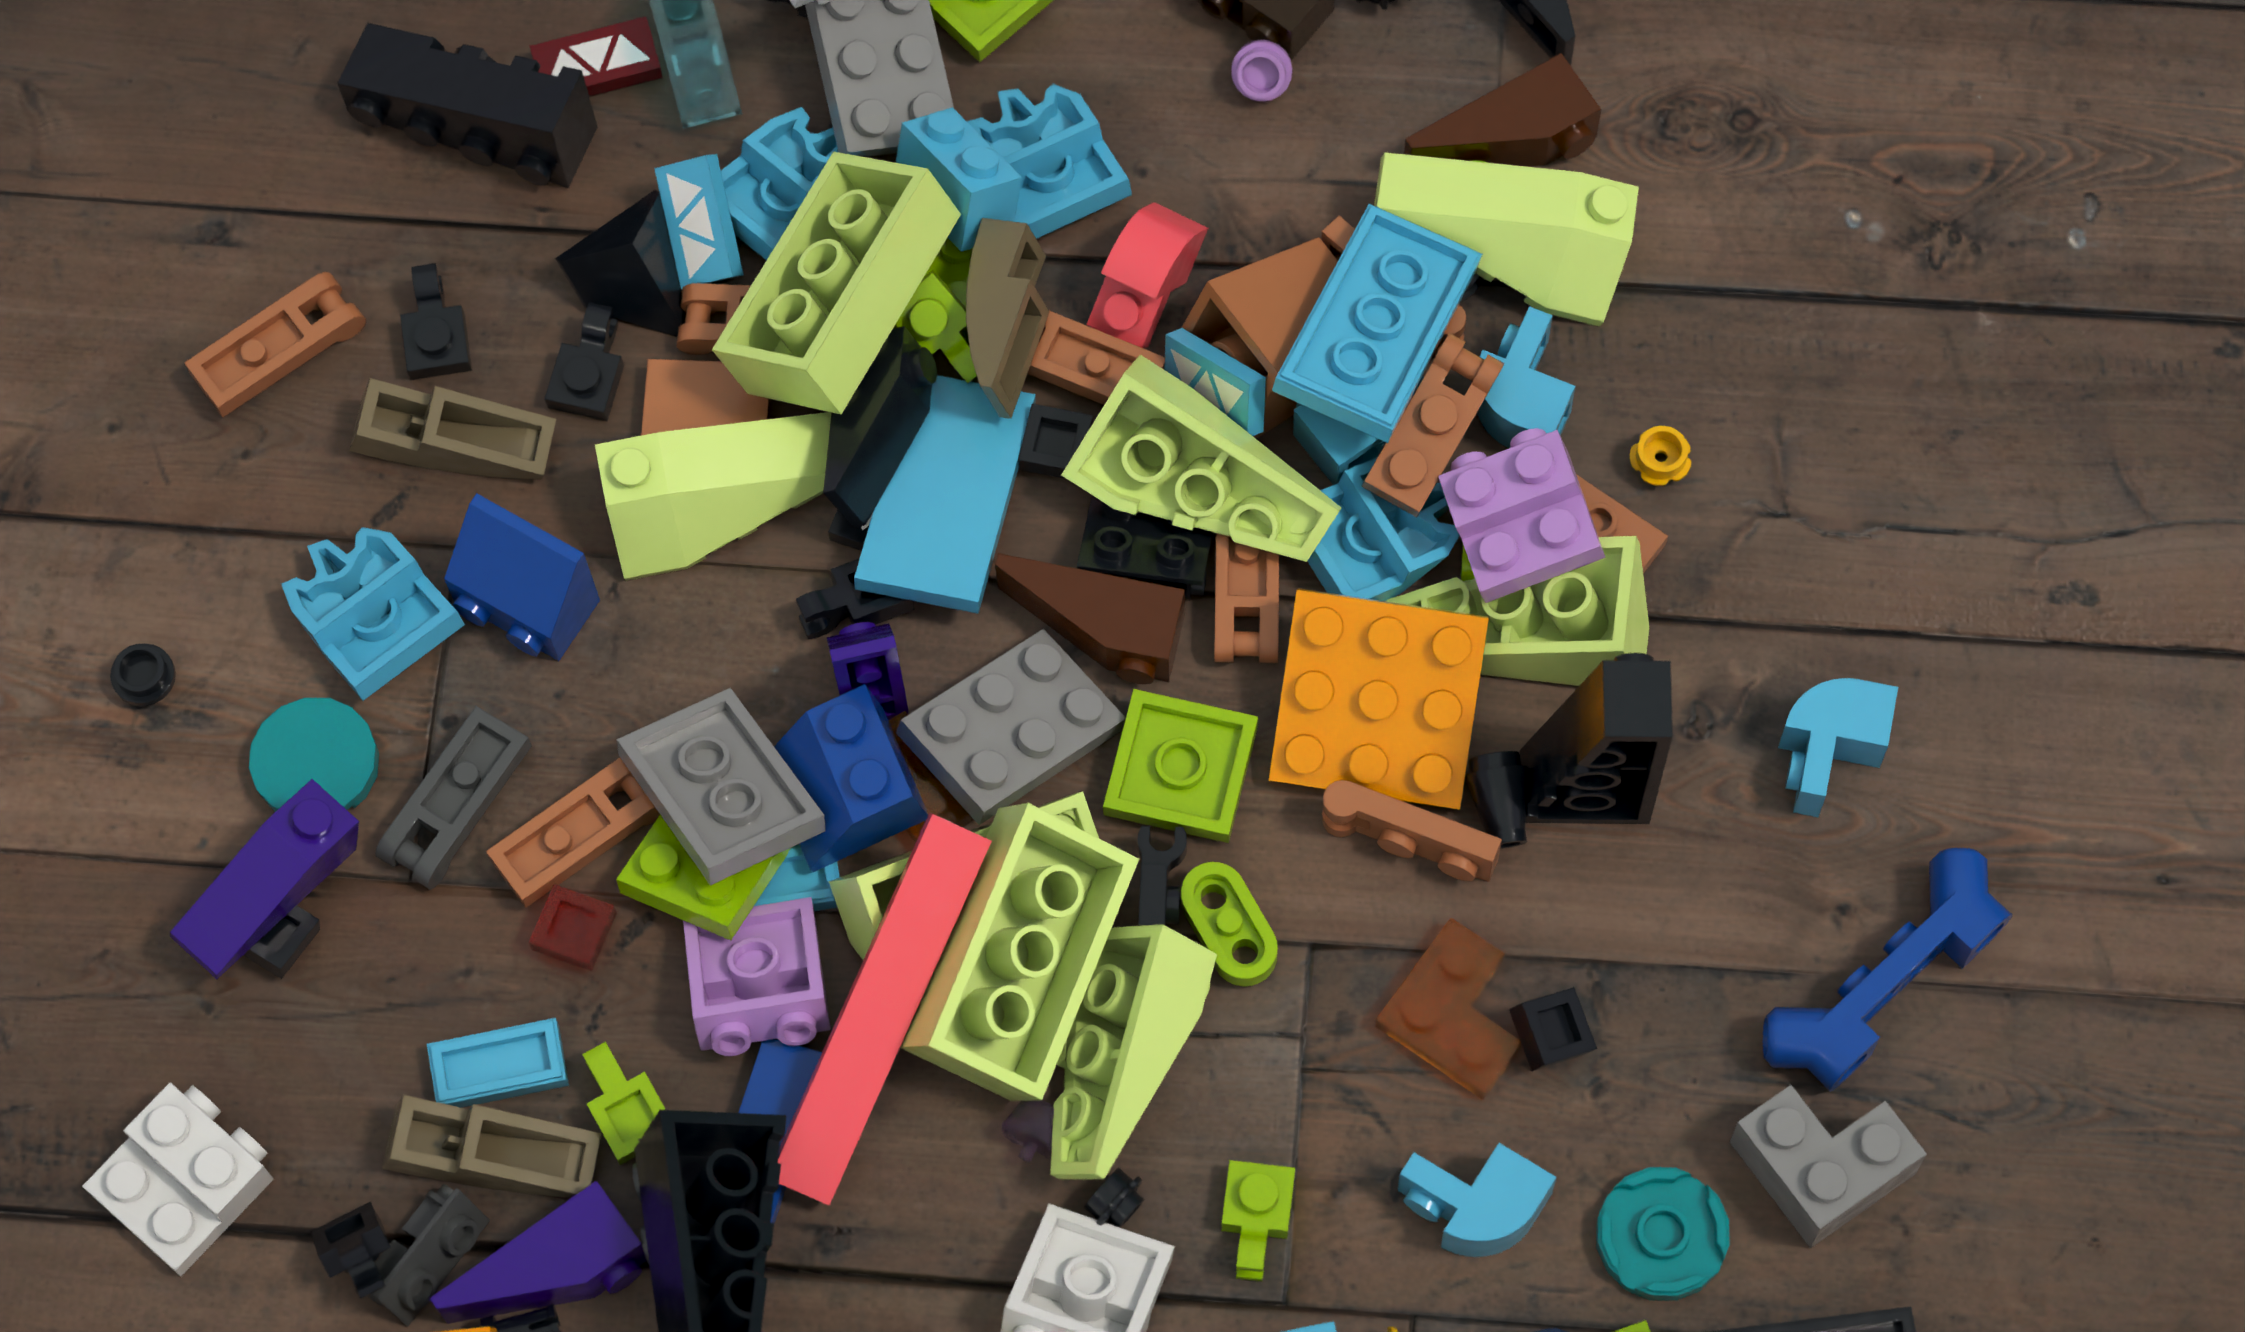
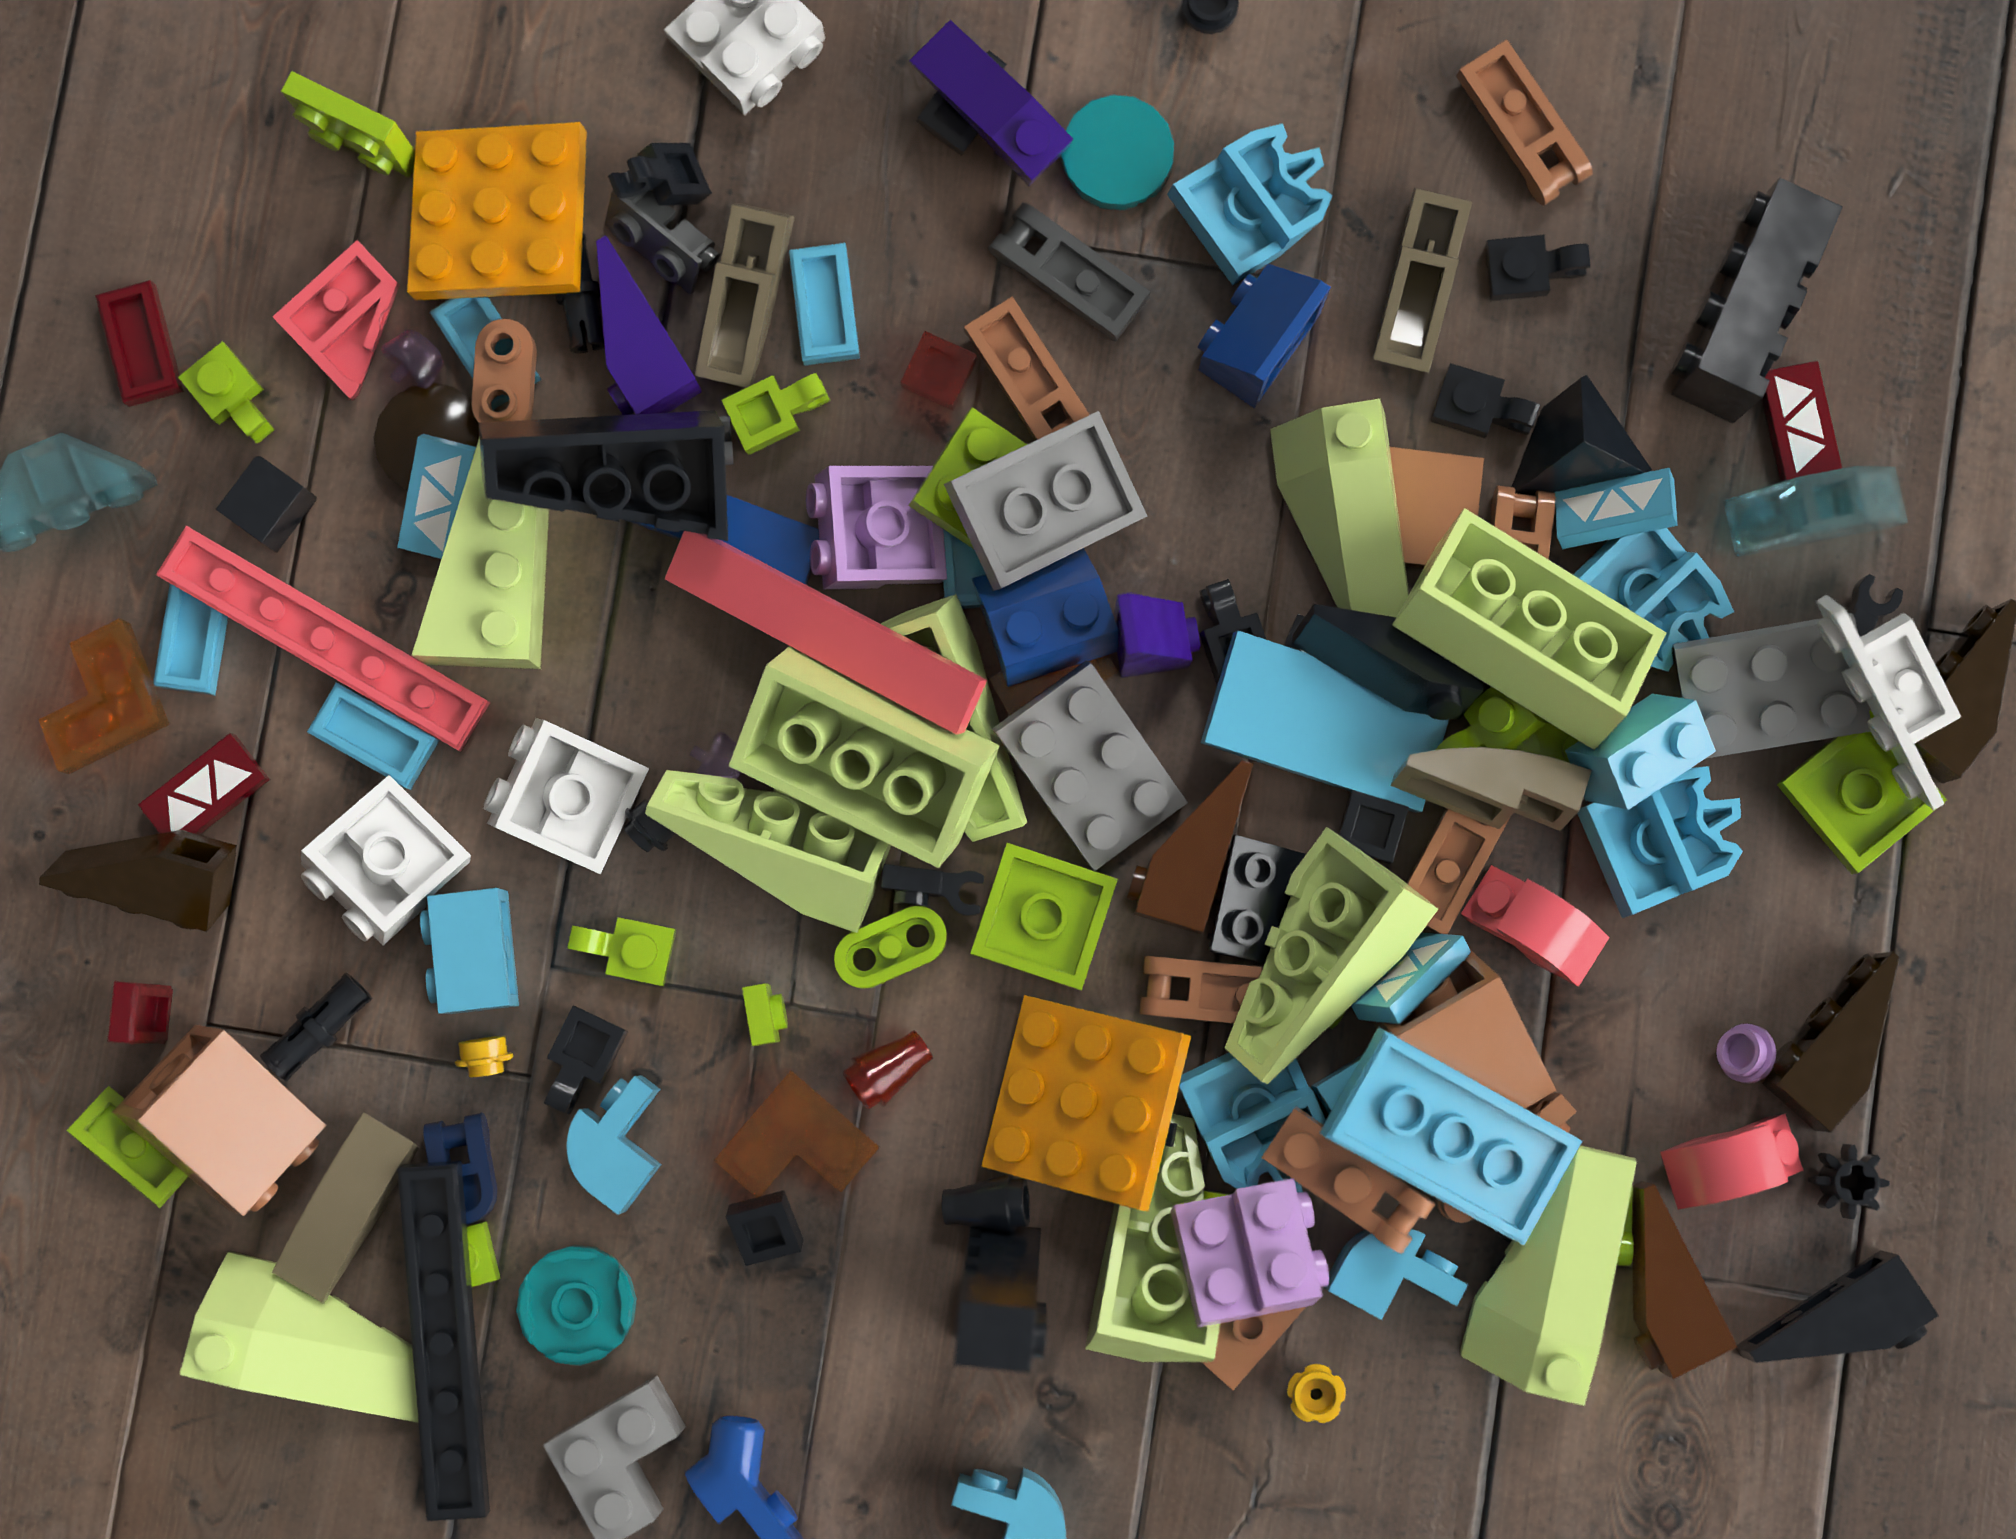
camera: 95 degrees right, 15 degrees up
(1316, 1051) = (764, 1014): none -> lime plate
(1366, 918) = (886, 1069): none -> clear red cone
(1376, 74) = (1732, 1163): none -> coral brick
(1377, 1245) = (584, 1049): none -> black plate
(1409, 830) = (961, 1115): nougat plate -> none

